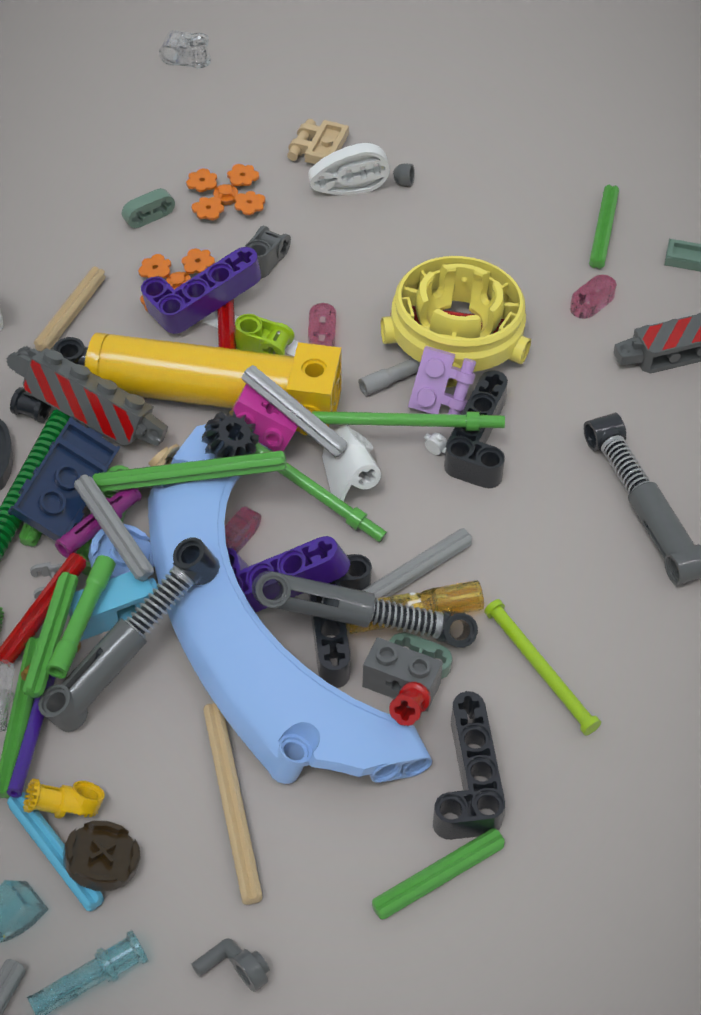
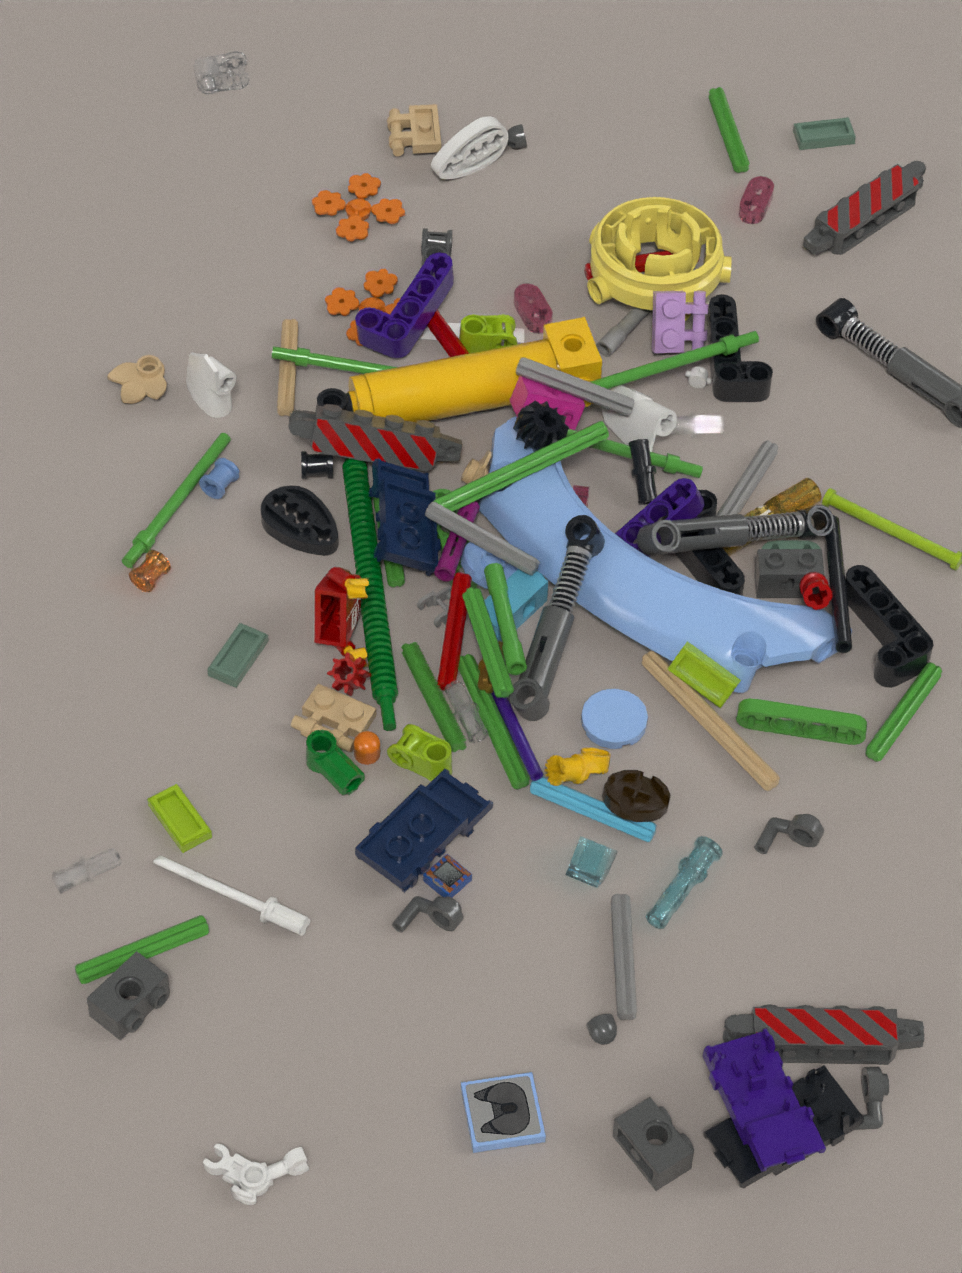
camera: 25 degrees left, 0 degrees up
(84, 305) = (304, 357): none -> bright green bar
(138, 760) = (614, 718): none -> light blue tile
(148, 208) = (297, 246): sand green beam -> none
(247, 750) = (703, 674): none -> lime tile
(320, 516) = (643, 471): none -> black pin
(322, 841) = (837, 727): none -> bright green beam
(404, 489) = (699, 425): none -> clear axle
(439, 709) = (839, 591): none -> black piece

